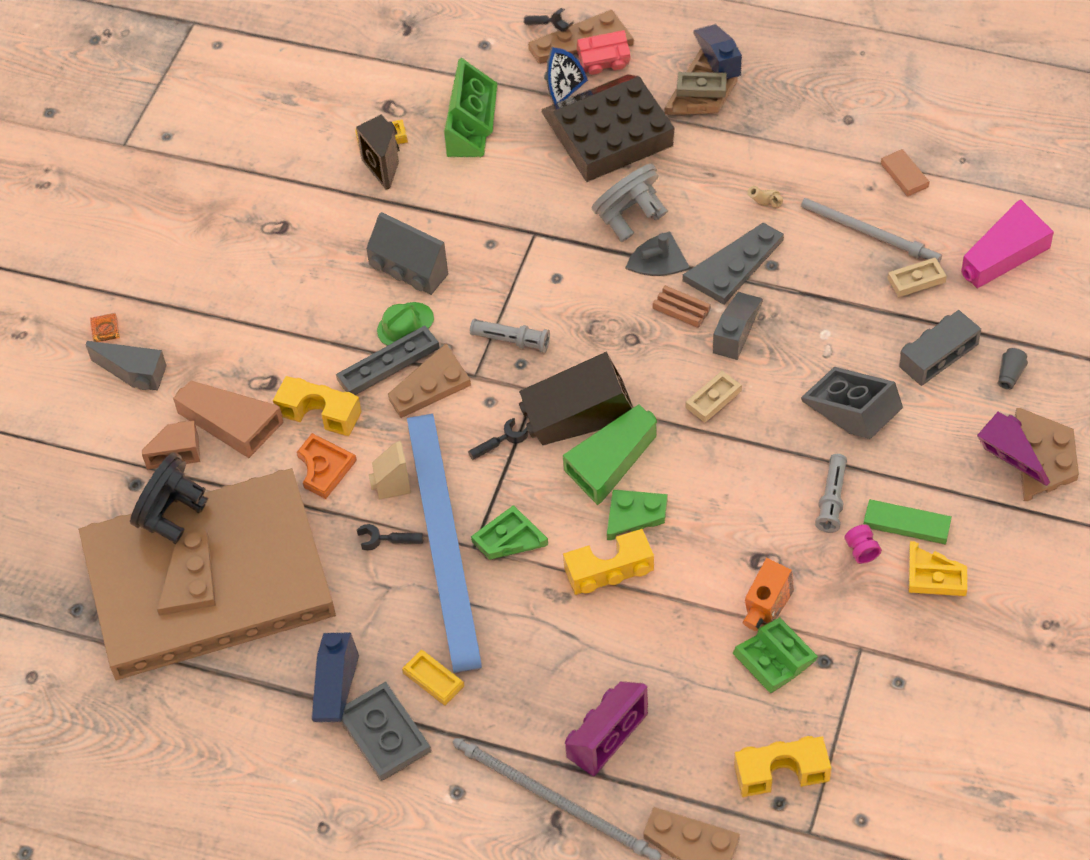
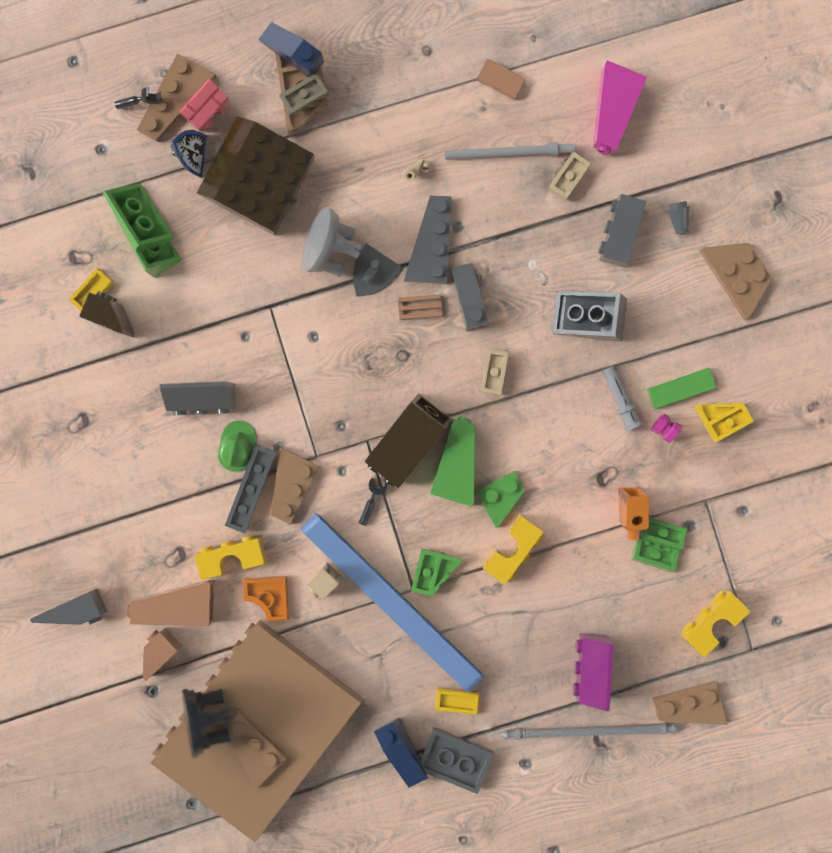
camera: 40 degrees left, 35 degrees up
(104, 327) = (28, 589): clear orange tile -> none
(394, 537) = (357, 620): black piece -> none
(521, 336) = (328, 407): light grey pin -> none
(1008, 442) = (721, 287): magenta slope -> none

